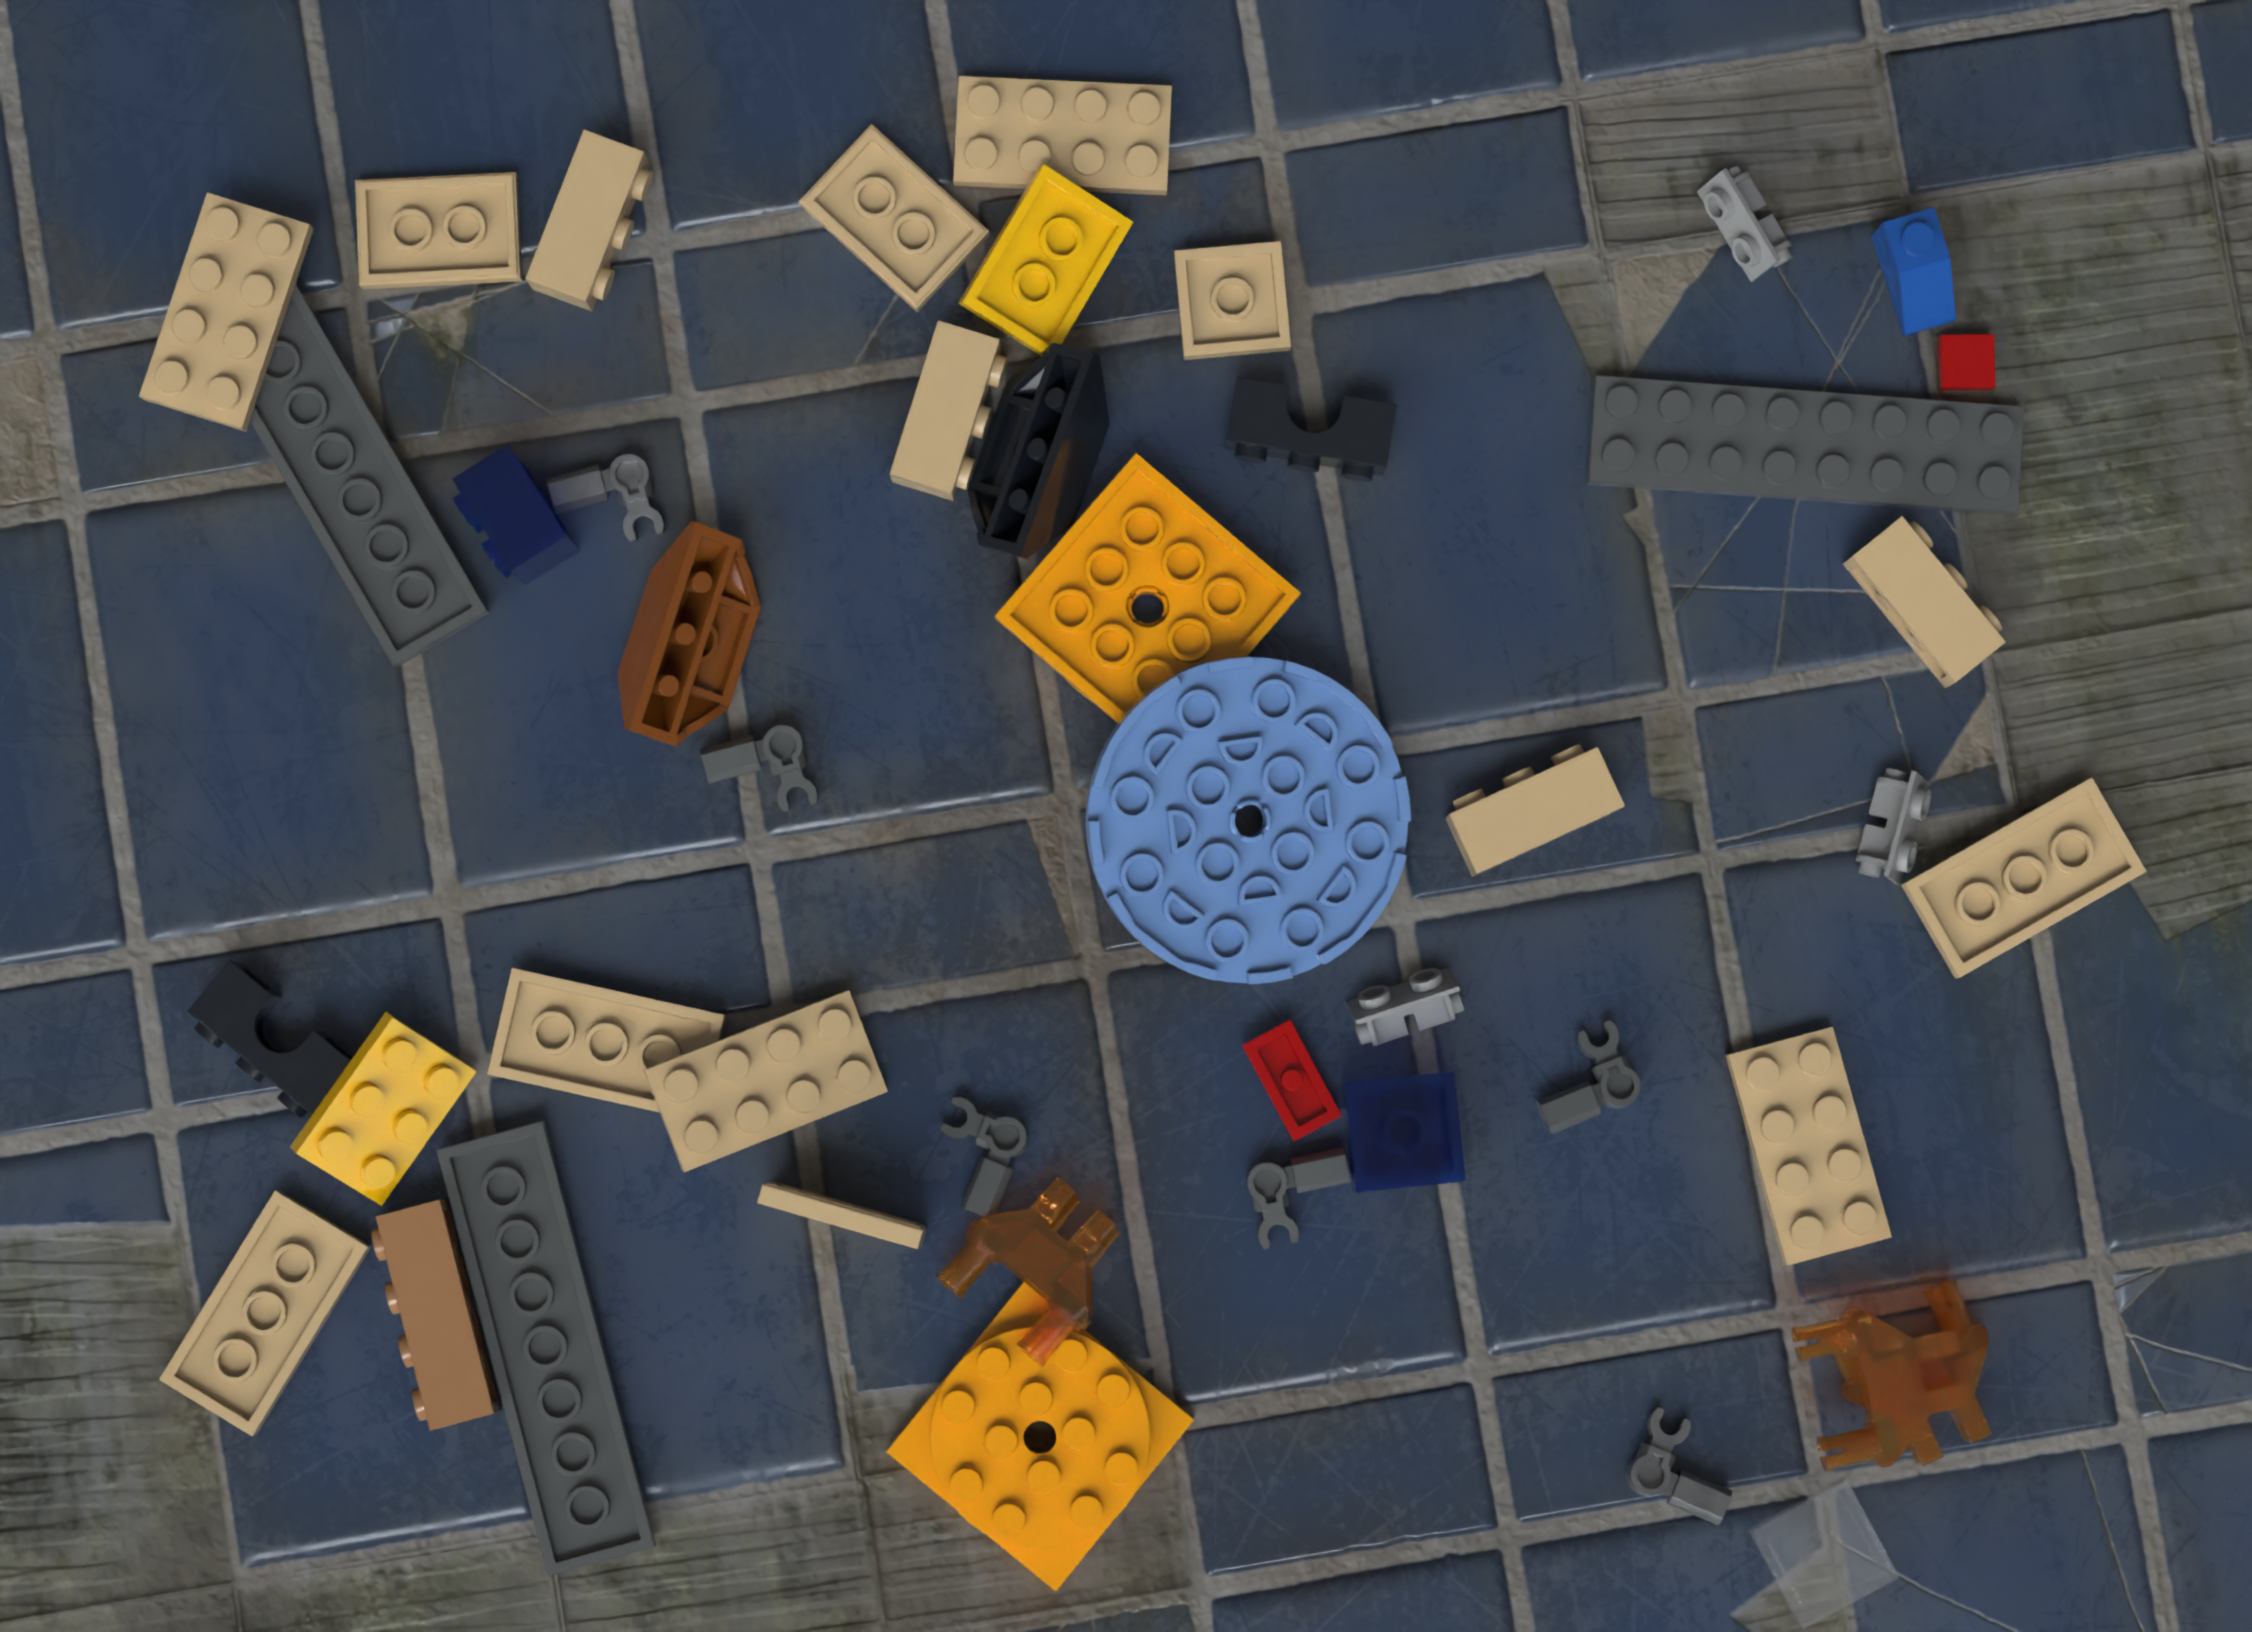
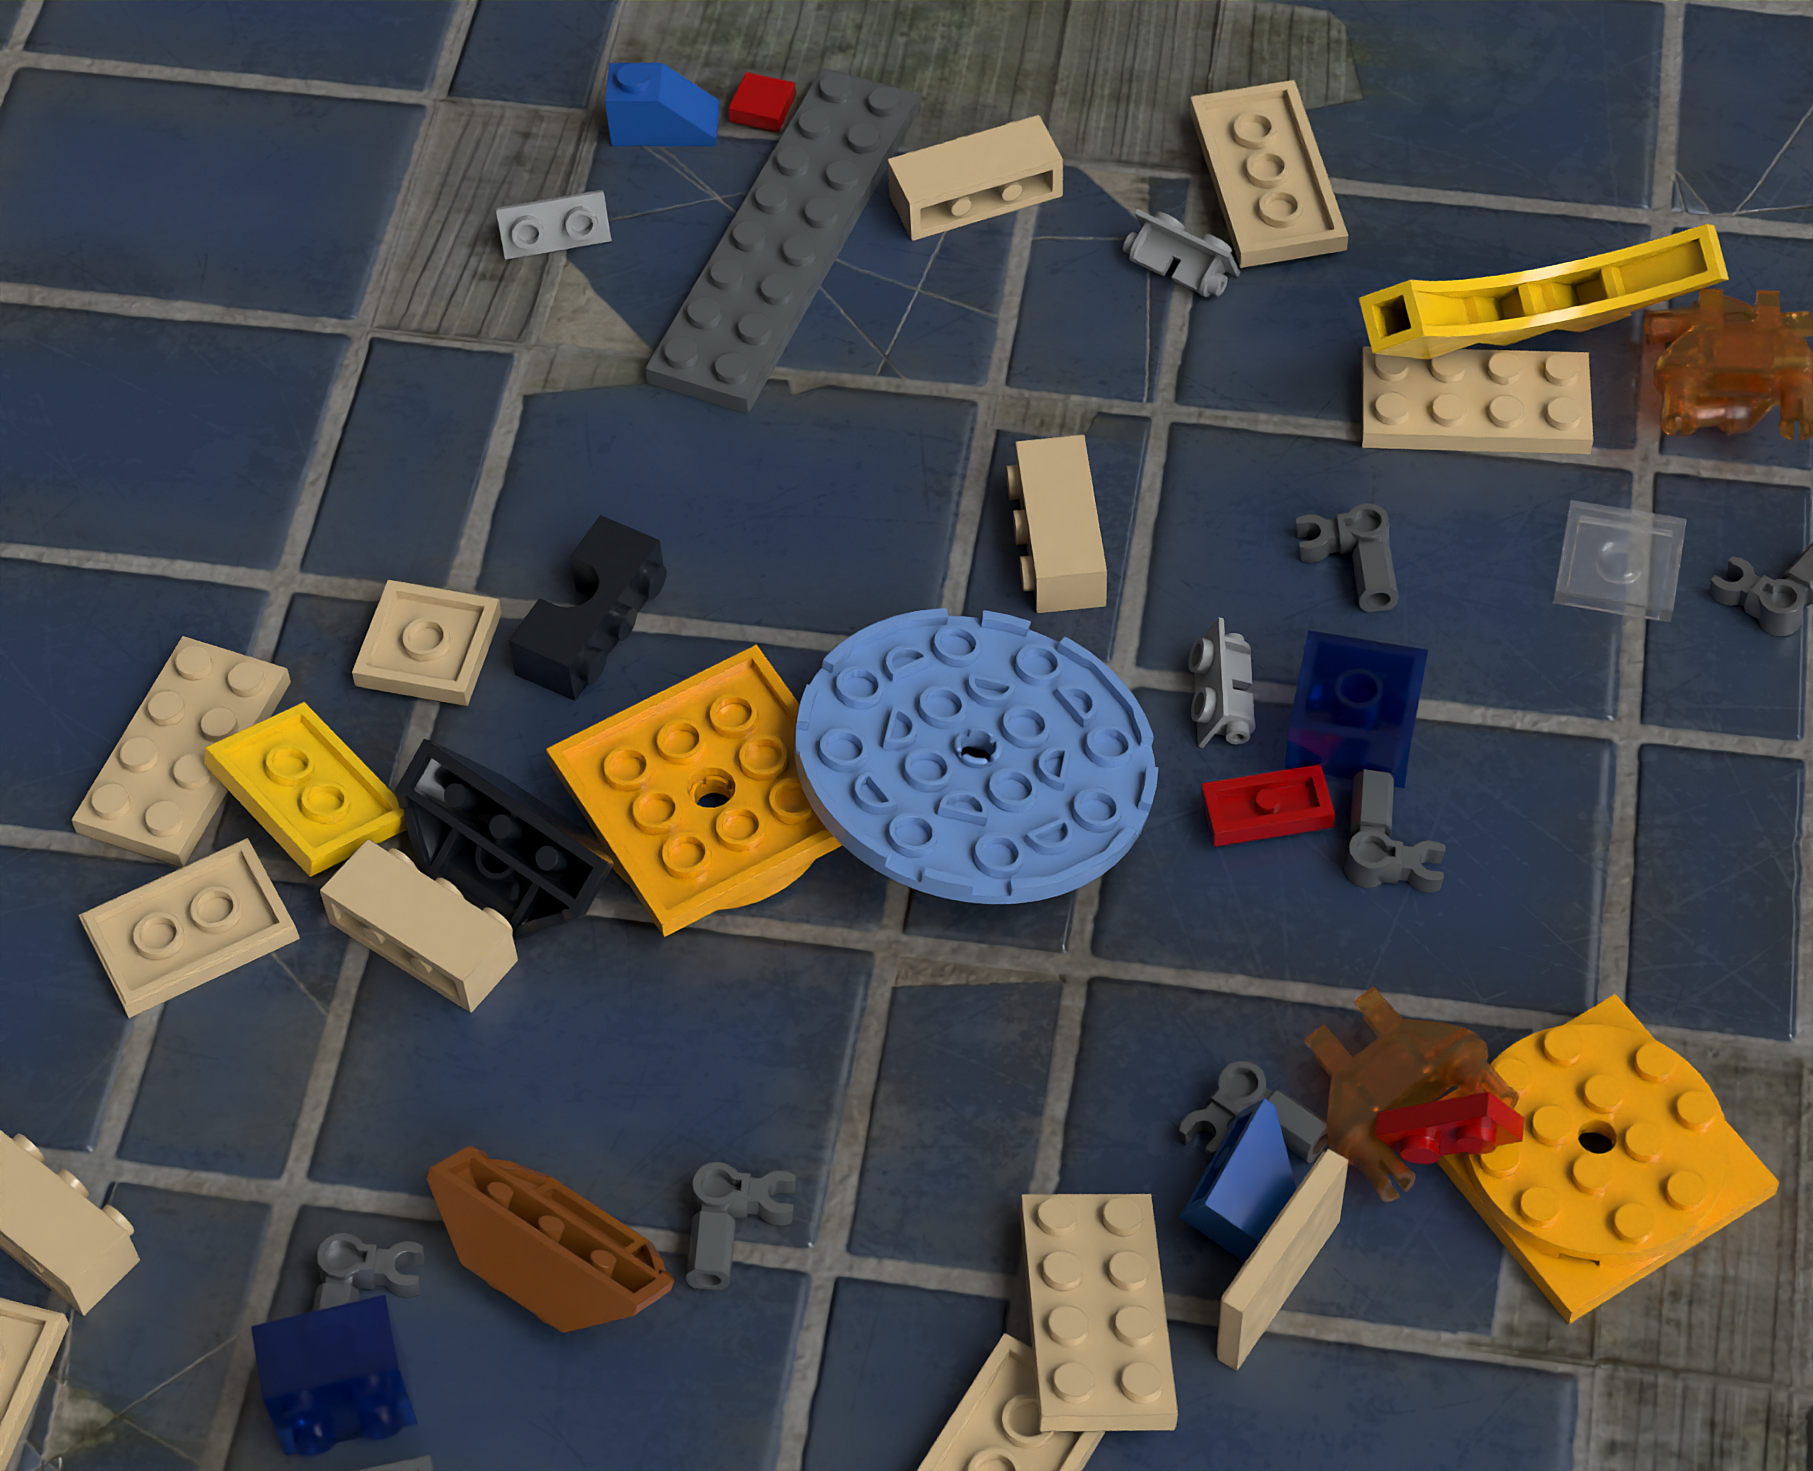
camera: 65 degrees left, 30 degrees down
(907, 1166) = (1243, 1183): none -> blue slope
(992, 1301) = (1450, 1127): none -> red plate
(1660, 1321) = (1620, 561): none -> clear tile
(1893, 1159) = (1575, 296): none -> yellow arch

